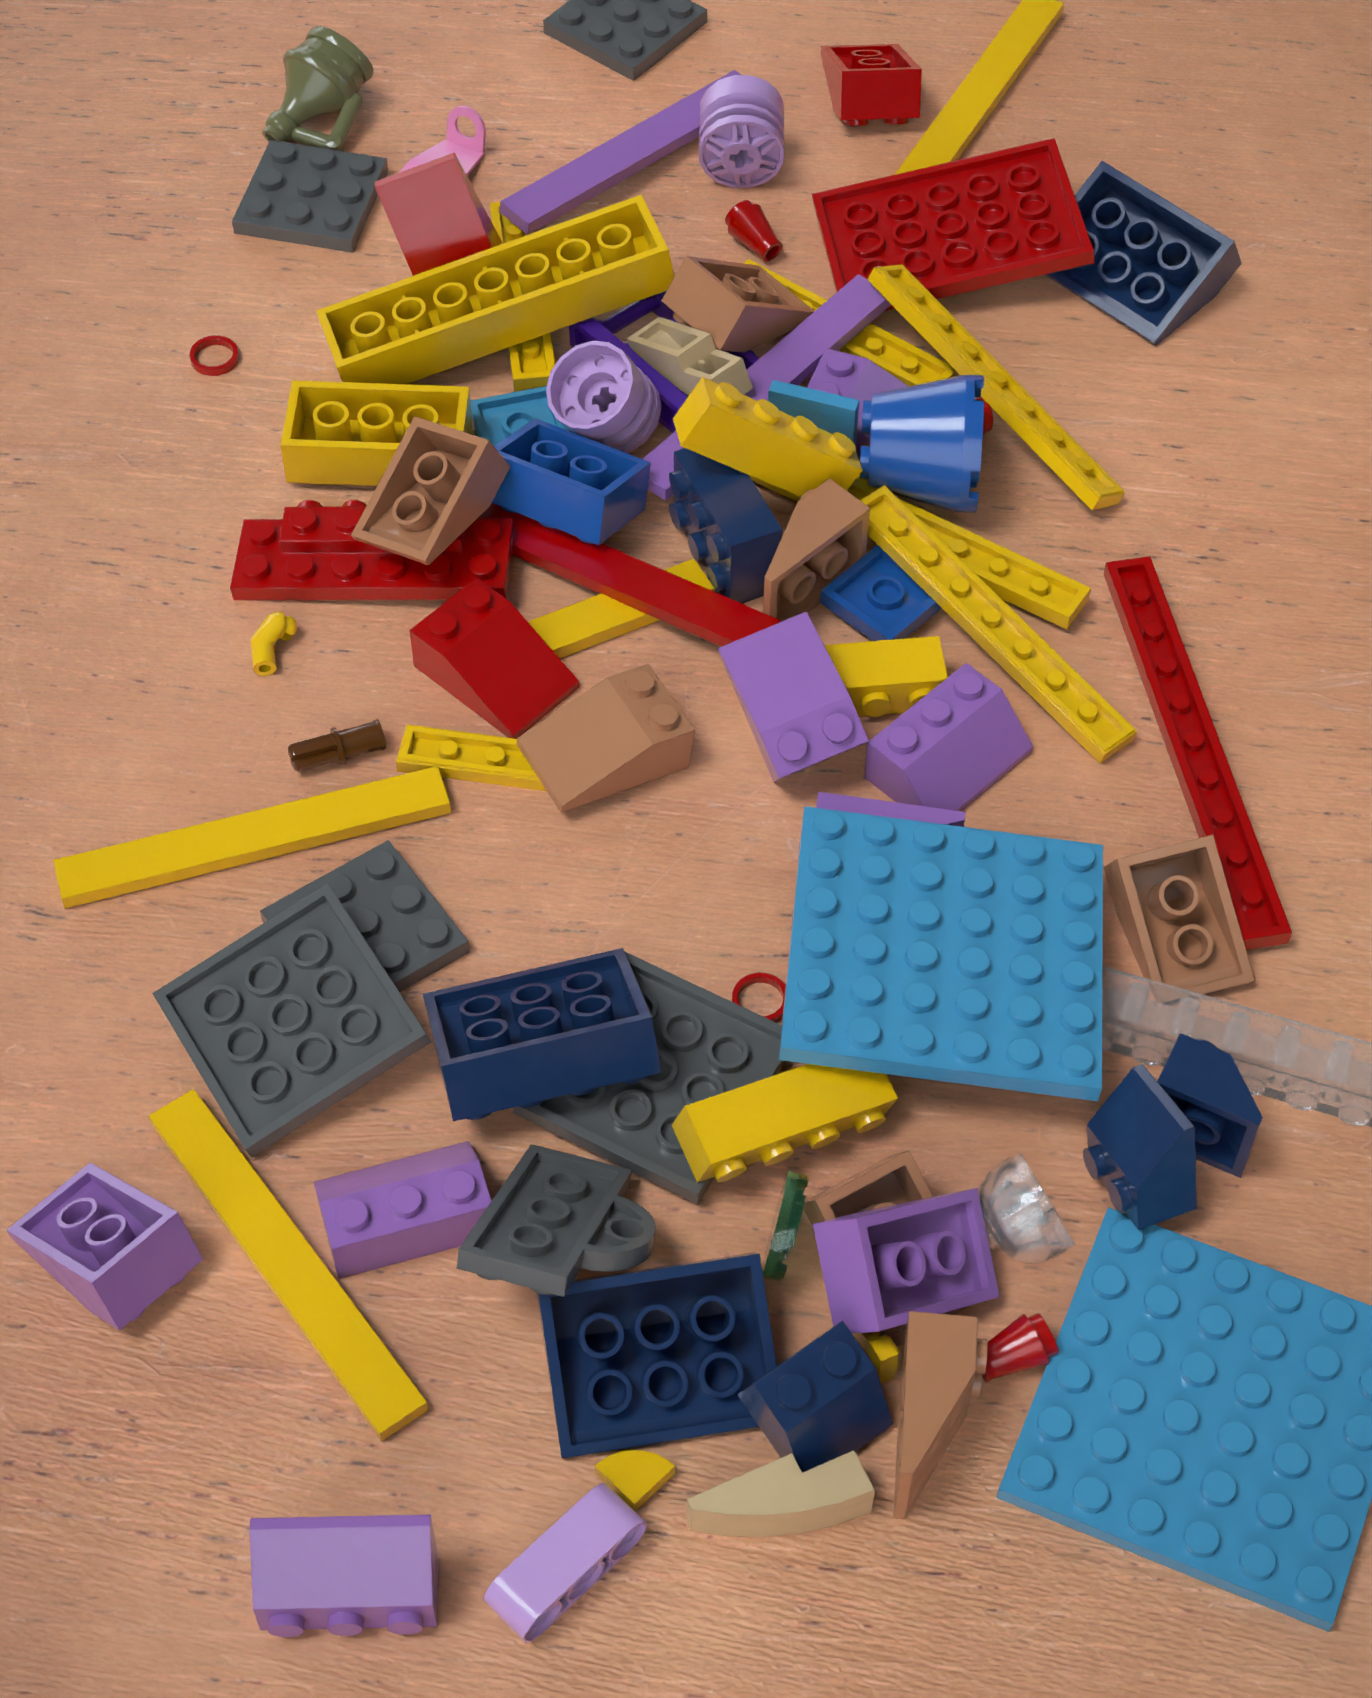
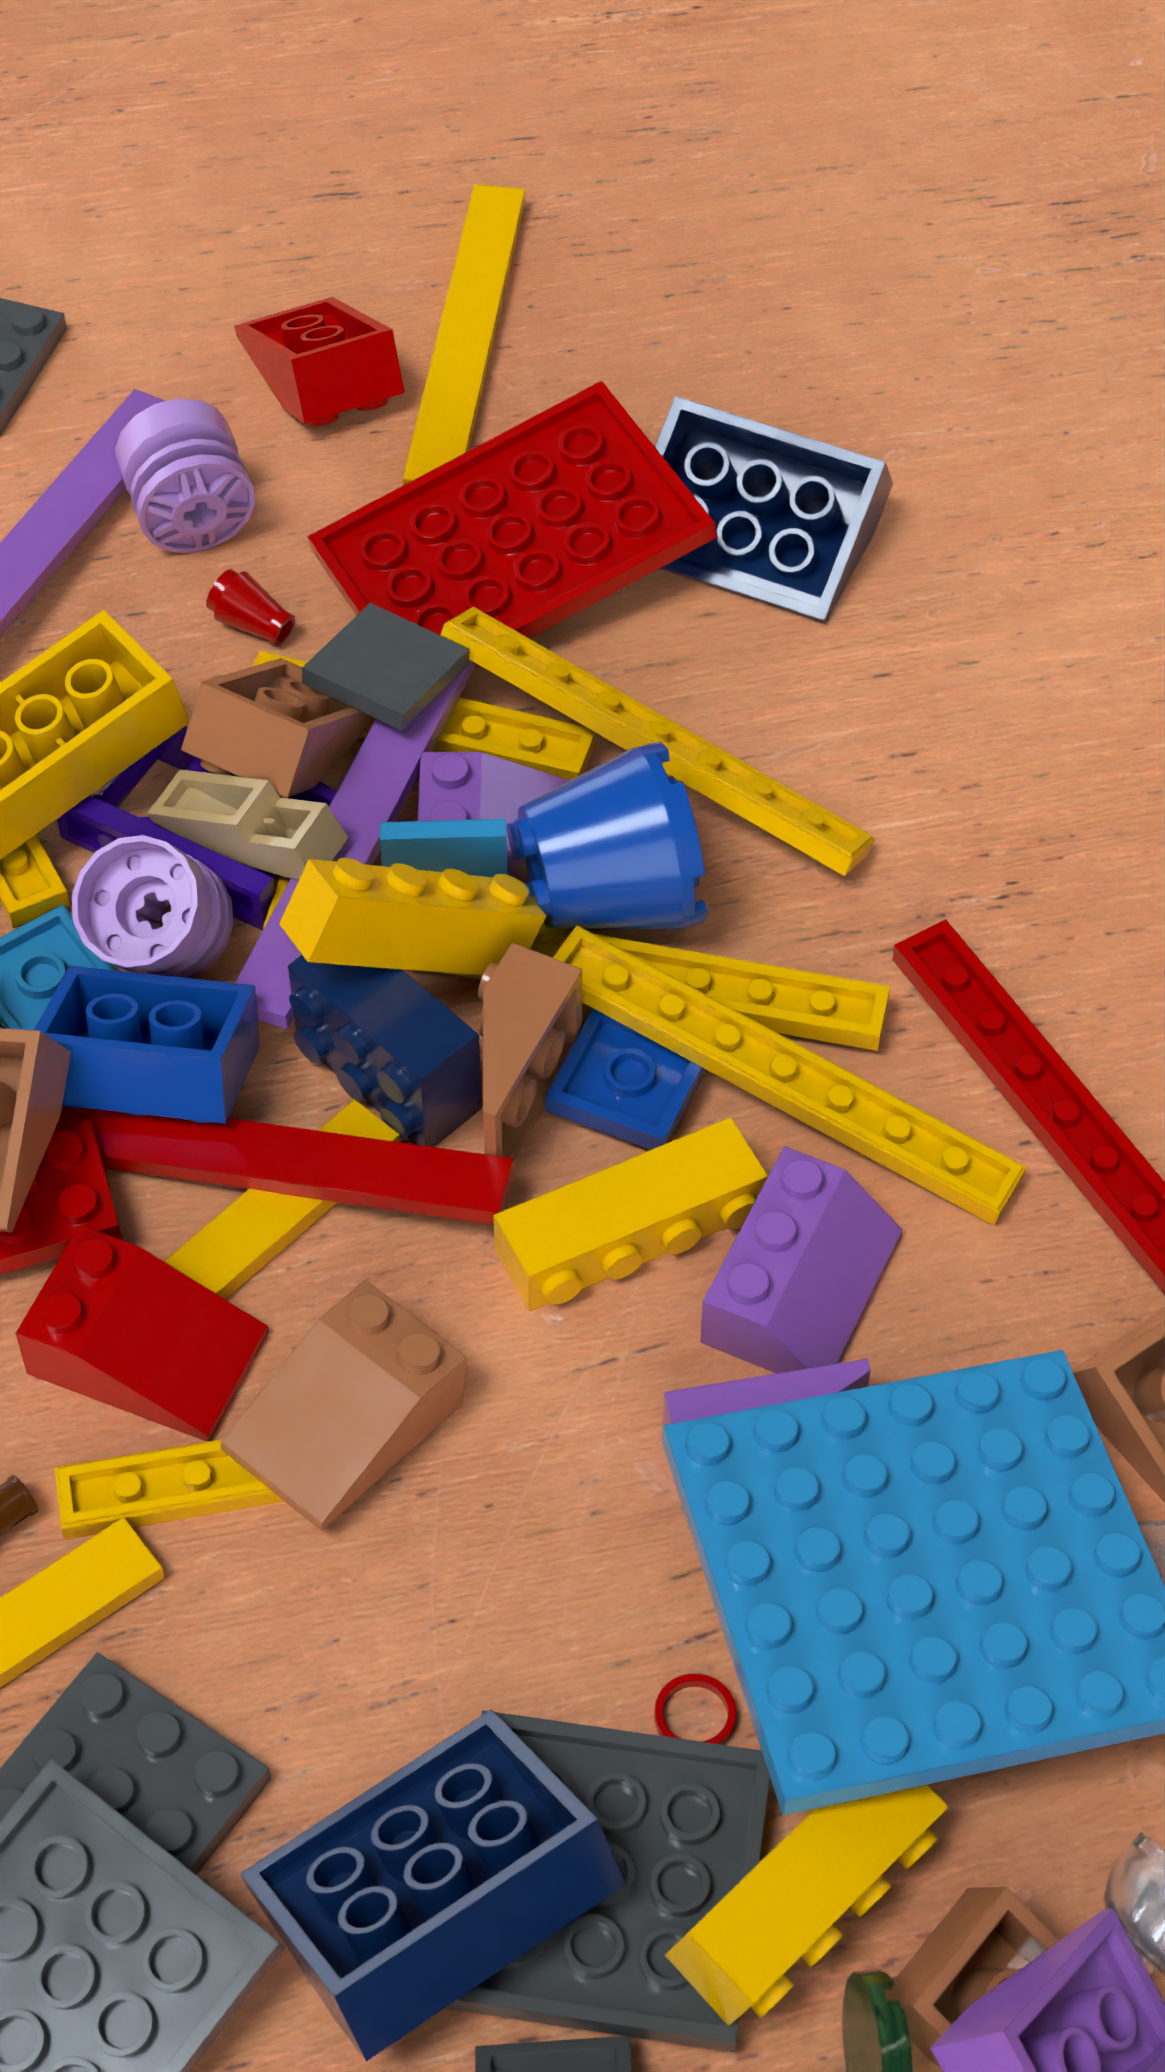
camera: 20 degrees left, 0 degrees up
(792, 696) = (580, 1269): medium lavender slope -> none
(823, 285) = (385, 666): none -> dark grey tile

